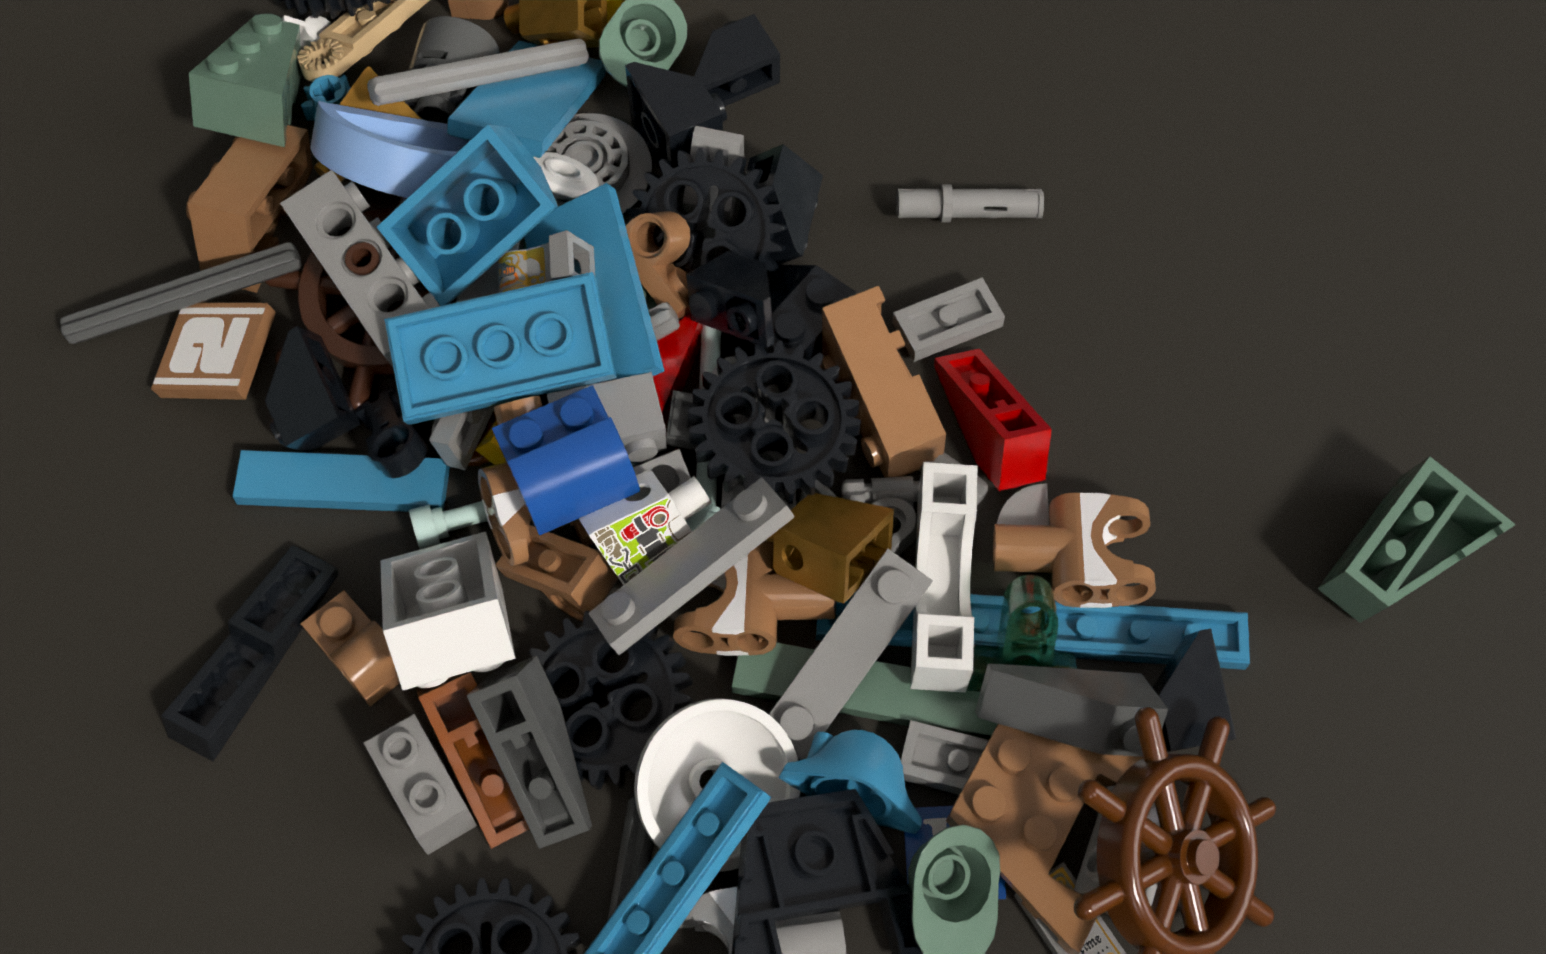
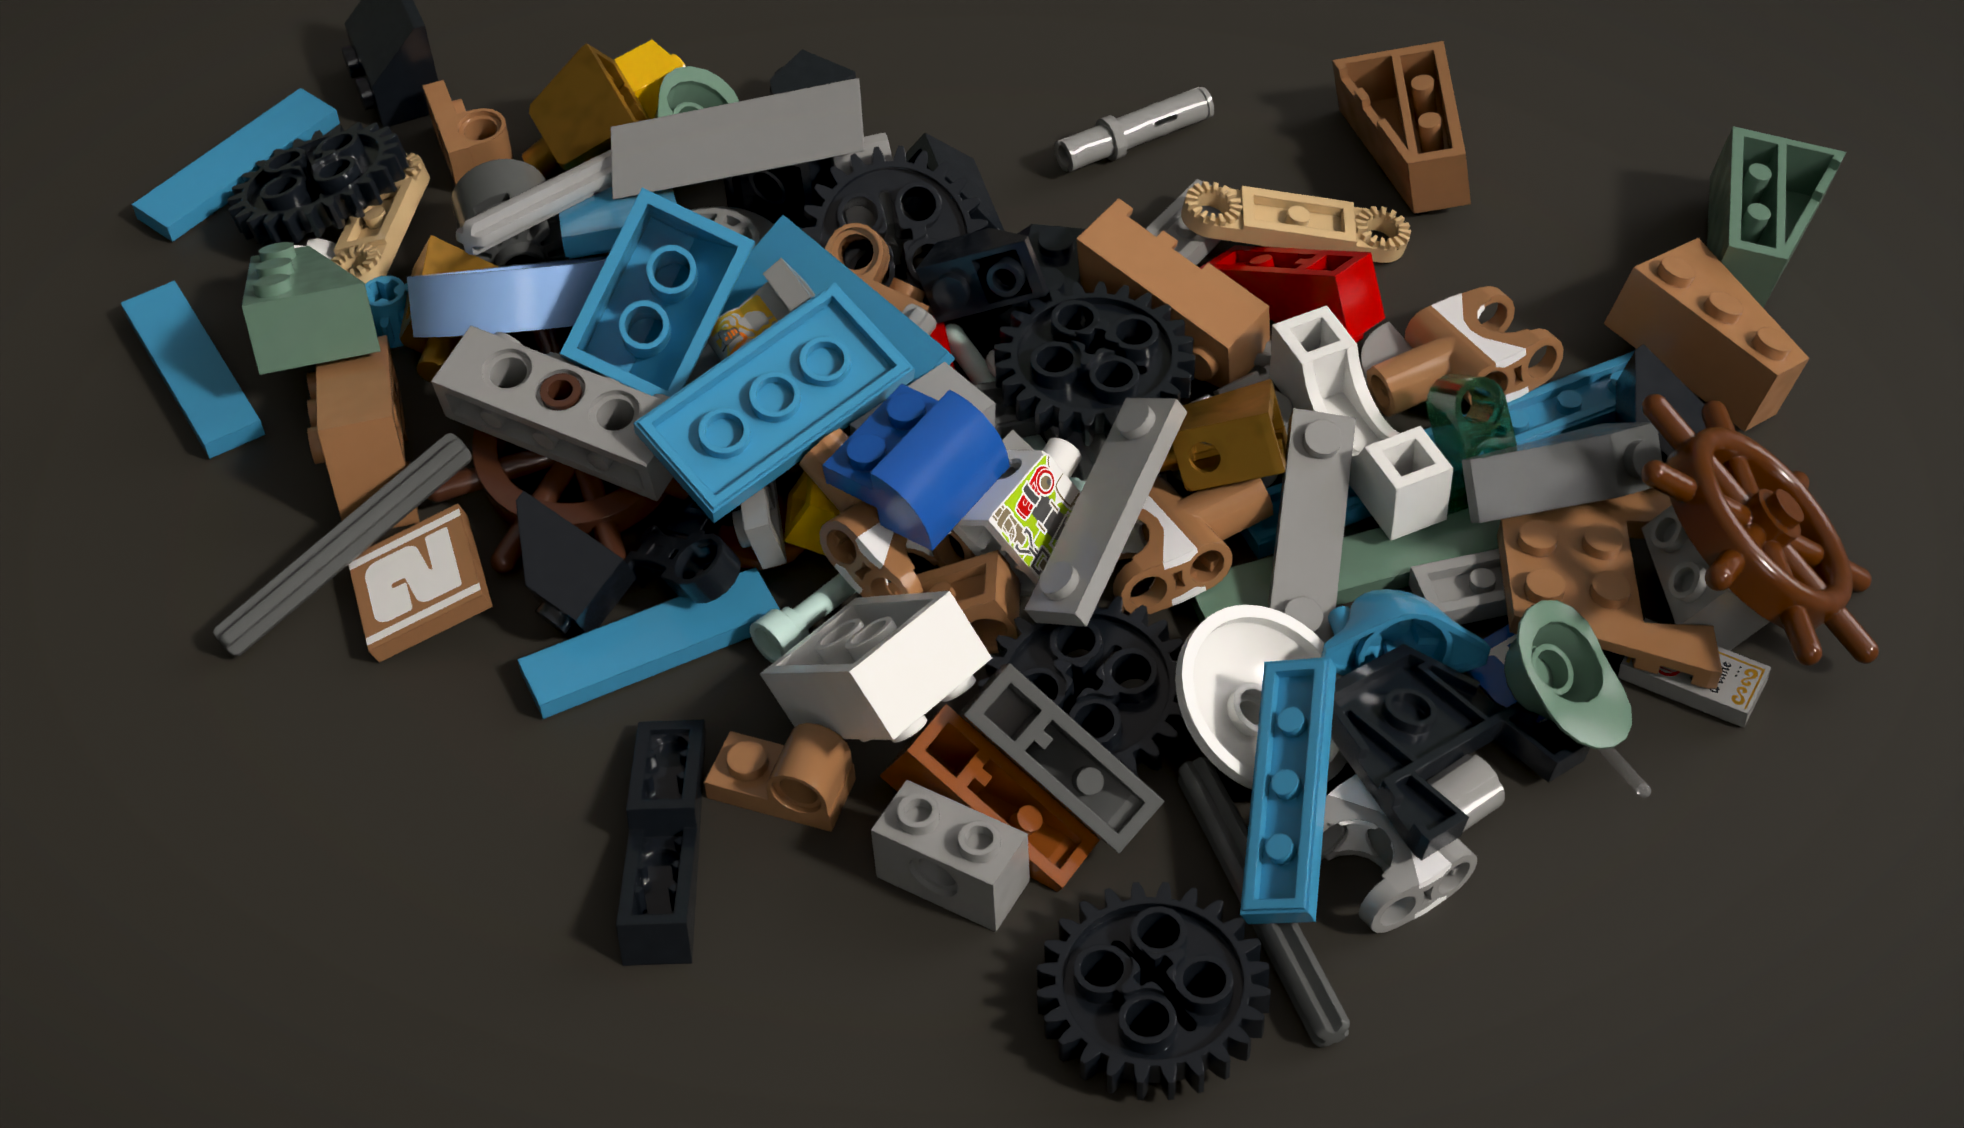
camera: 25 degrees left, 15 degrees down
(183, 45) = (193, 369): none -> dark azure tile
(633, 87) = (737, 138): none -> light grey sticker
(1031, 357) = (1293, 221): none -> tan plate
(1185, 309) = (1408, 122): none -> medium nougat wedge
(1285, 633) = (1708, 332): none -> medium nougat wedge

